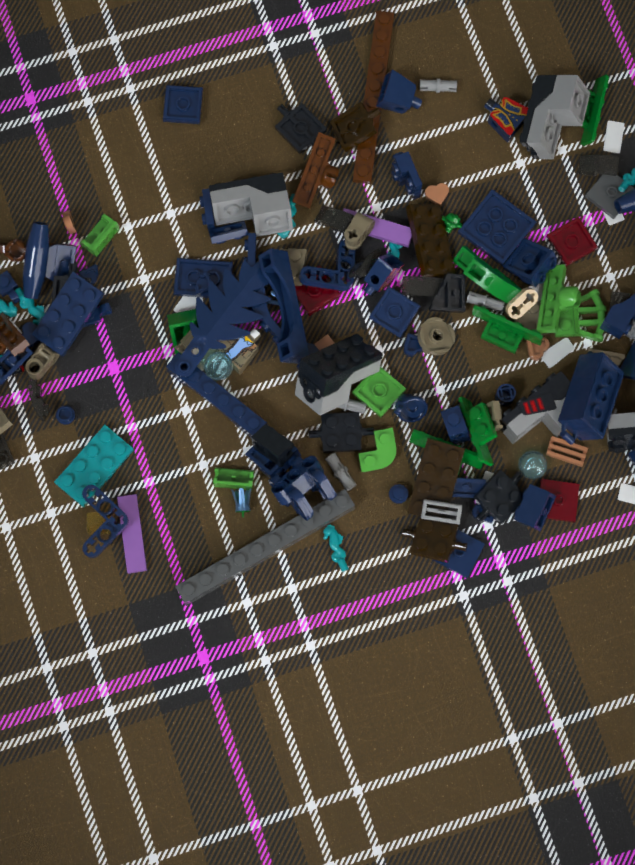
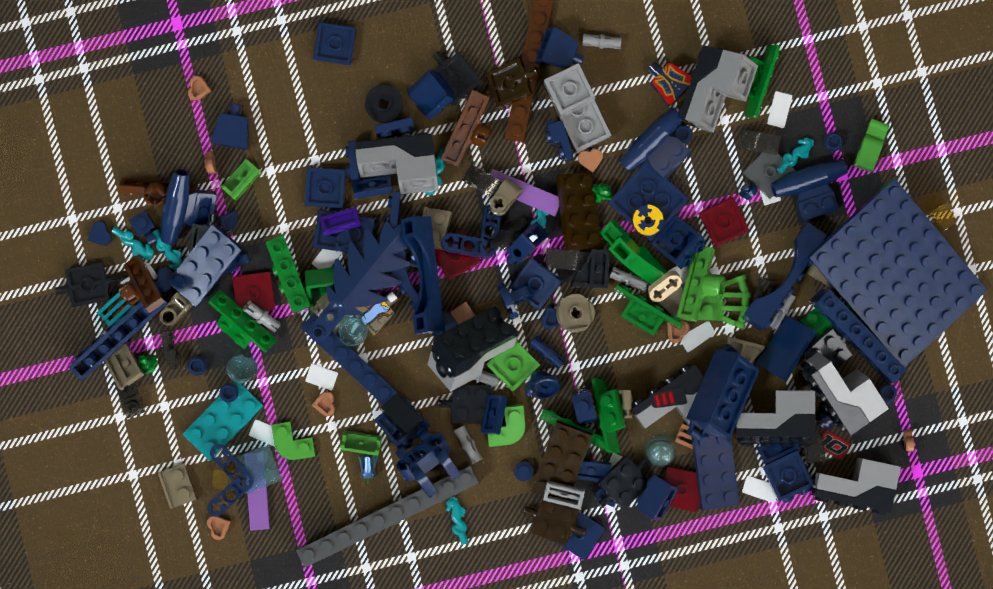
camera: 10 degrees right, 10 degrees up
(16, 415) = (148, 363): none -> green plant
(51, 534) = (177, 486): none -> dark tan plate
(53, 155) = (198, 89): none -> nougat tile
(88, 189) = (232, 129): none -> dark blue torso
(95, 572) = (218, 526): none -> nougat tile
(98, 436) = (229, 392): none -> dark blue plate
(105, 371) = (239, 324): none -> green bracket
(109, 413) = (241, 368): none -> clear light blue hair
(118, 341) = (254, 288): none -> dark red plate
(127, 361) = (261, 316): none -> light grey pin
(135, 506) = (261, 466): none -> clear light blue plate
(139, 477) = (262, 432): none -> white sticker
(150, 317) = (288, 275): none -> green bracket
(163, 488) = (287, 446): none -> bright green plate
(181, 236) = (325, 187): none -> dark blue plate
(190, 417) = (321, 377): none -> white sticker
(194, 443) = (324, 403): none -> nougat tile
(198, 265) = (340, 221): none -> dark purple tile
(236, 146) = (394, 108): none -> black plate
(246, 170) = (402, 126): none -> dark blue plate
(278, 142) = (431, 93): none -> dark blue slope
(364, 437) = (493, 414): none -> dark blue plate
(374, 325) = (513, 298): none -> dark blue tile
(411, 376) = (547, 352): none -> dark blue pin
(416, 132) = (577, 108): none -> light grey piece
(502, 175) = (658, 146): none -> dark blue plate
(503, 236) = (648, 211): none -> yellow piece
(503, 397) = (639, 376): dark blue wheel -> none
(523, 164) = (683, 133): none -> dark blue plate
(589, 478) = (715, 472): none -> dark blue plate
(592, 211) = (748, 190): none -> dark blue plate

